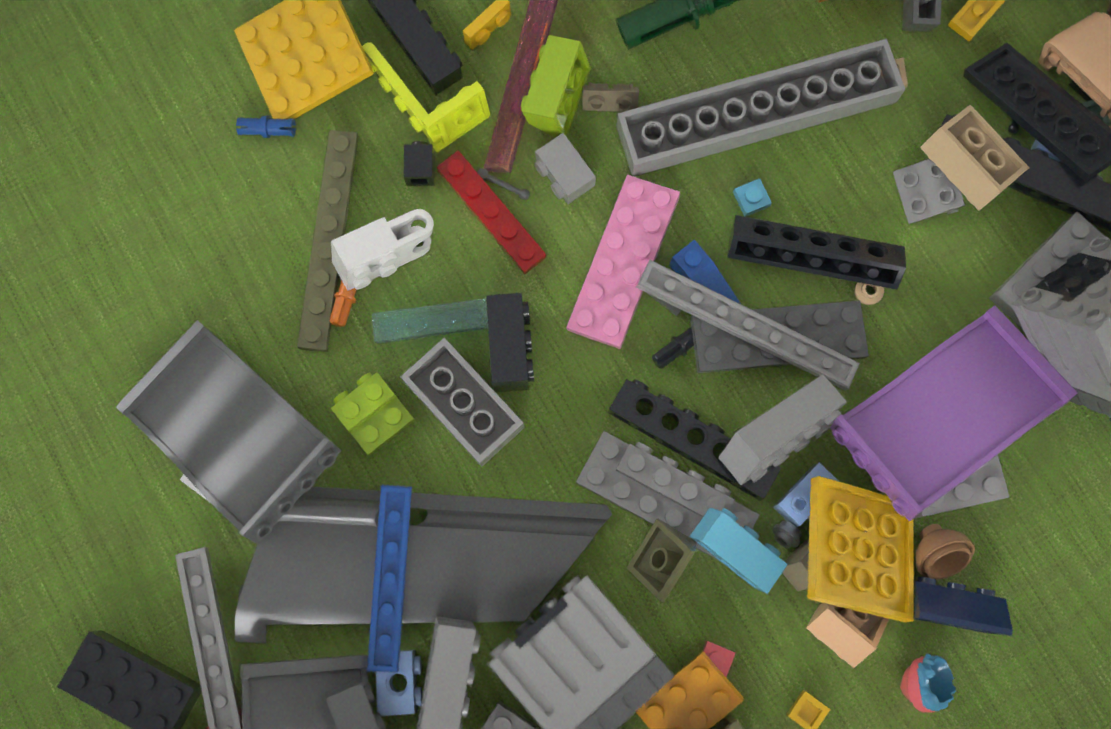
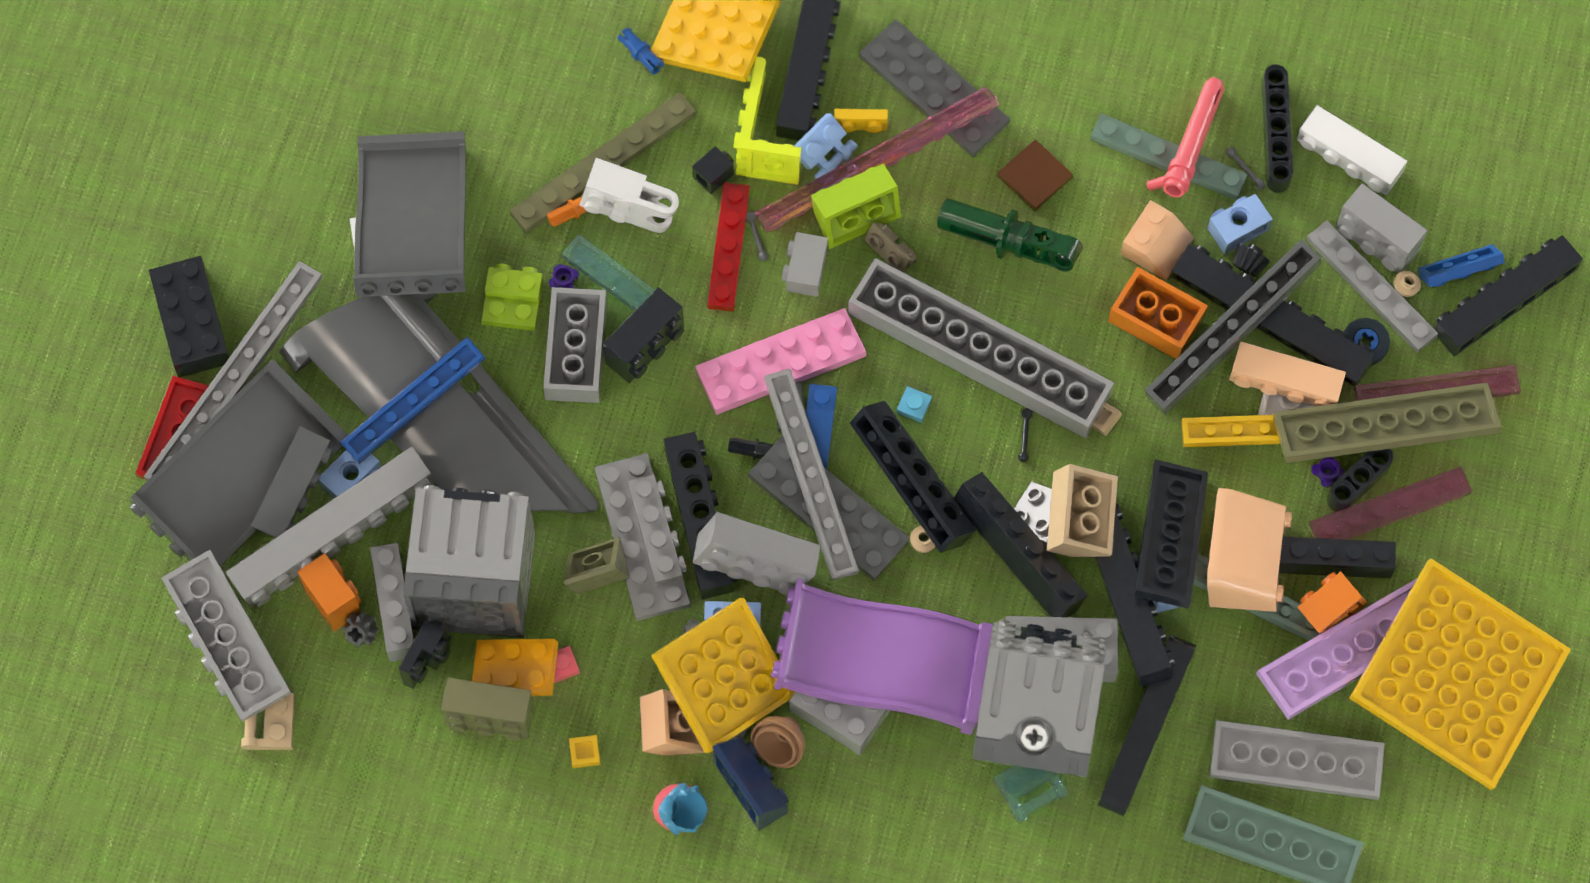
camera: 45 degrees right, 10 degrees down
(393, 366) = (563, 271): none -> dark purple plate
(477, 63) = (820, 140): none -> light blue plate
(739, 549) = (650, 604): medium azure brick -> none
(836, 126) = (1026, 415): none -> black hinge
(948, 228) = (1019, 547): none -> black brick

